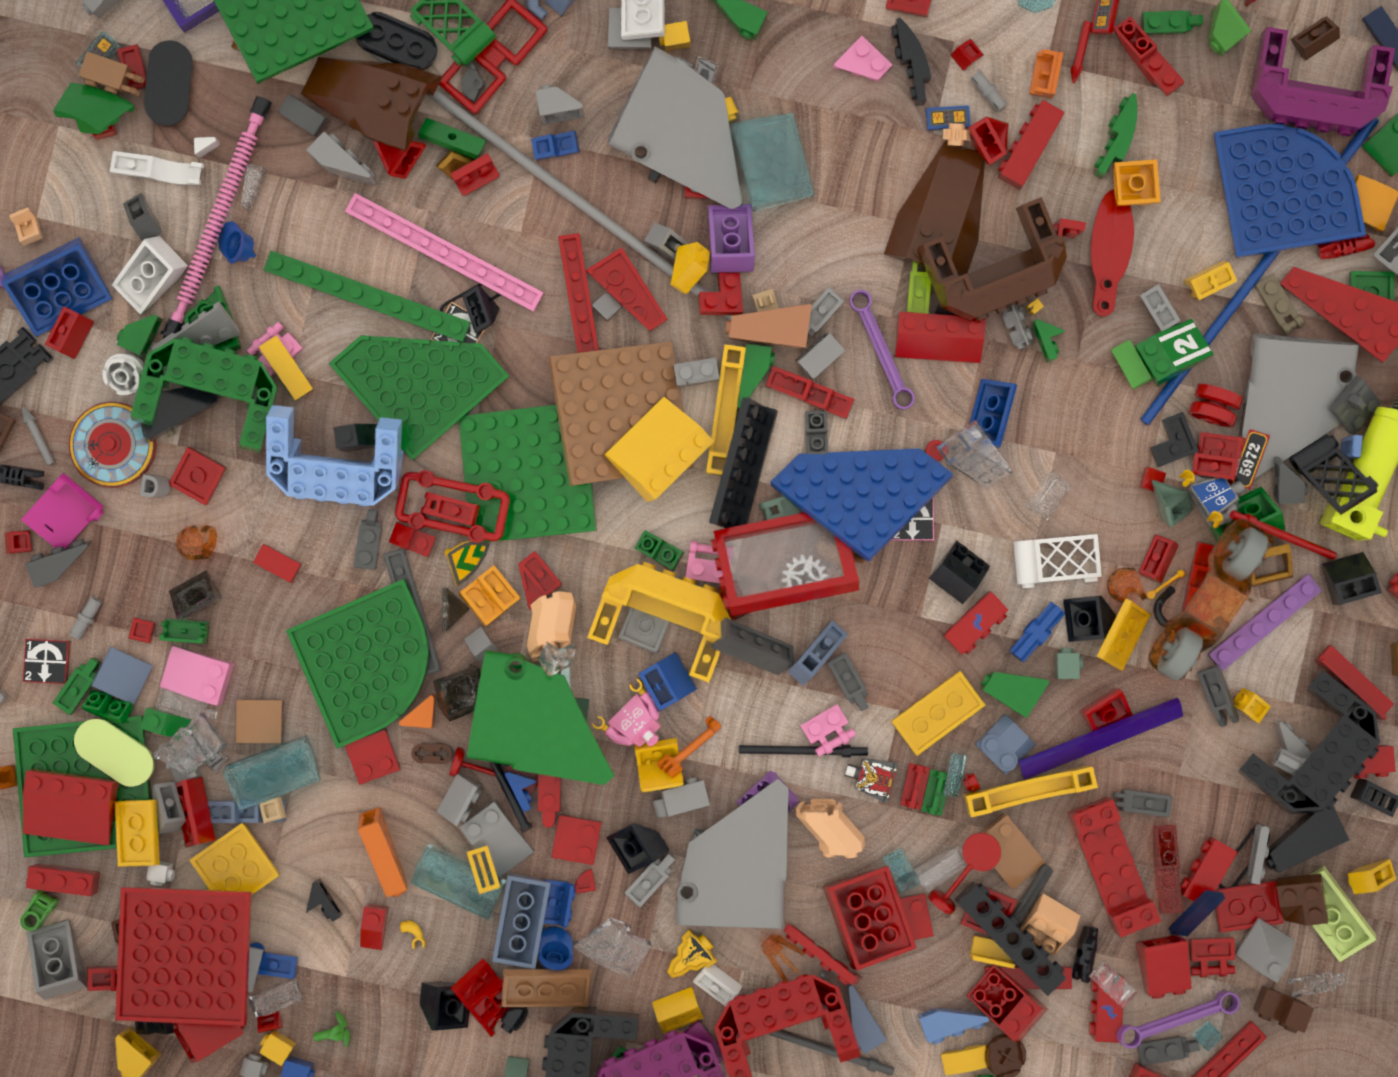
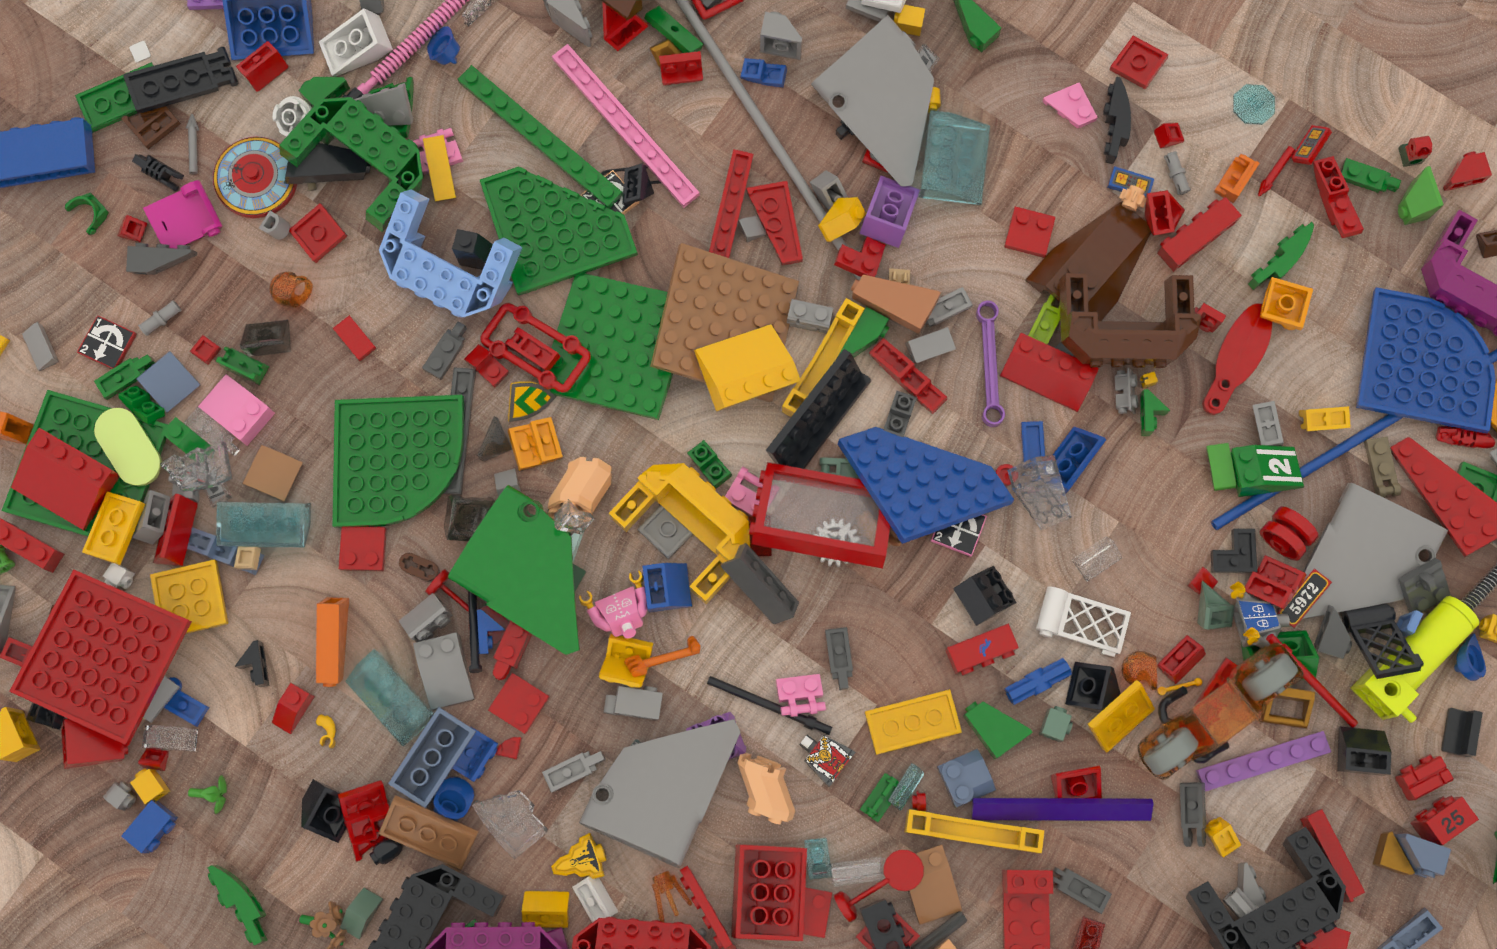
camera: 25 degrees right, 10 degrees down
(423, 715) = (425, 527): orange slope -> none
(488, 888) = (415, 710): yellow tile -> none
(537, 578) = (585, 442): red wing -> none
(637, 846) = (573, 731): black slope -> none
(817, 653) = (819, 617): sand blue slope -> none
(870, 205) = (1029, 232): none -> red plate
(915, 786) = (863, 783): red hinge -> none
(949, 410) = (1032, 440): none -> blue tile

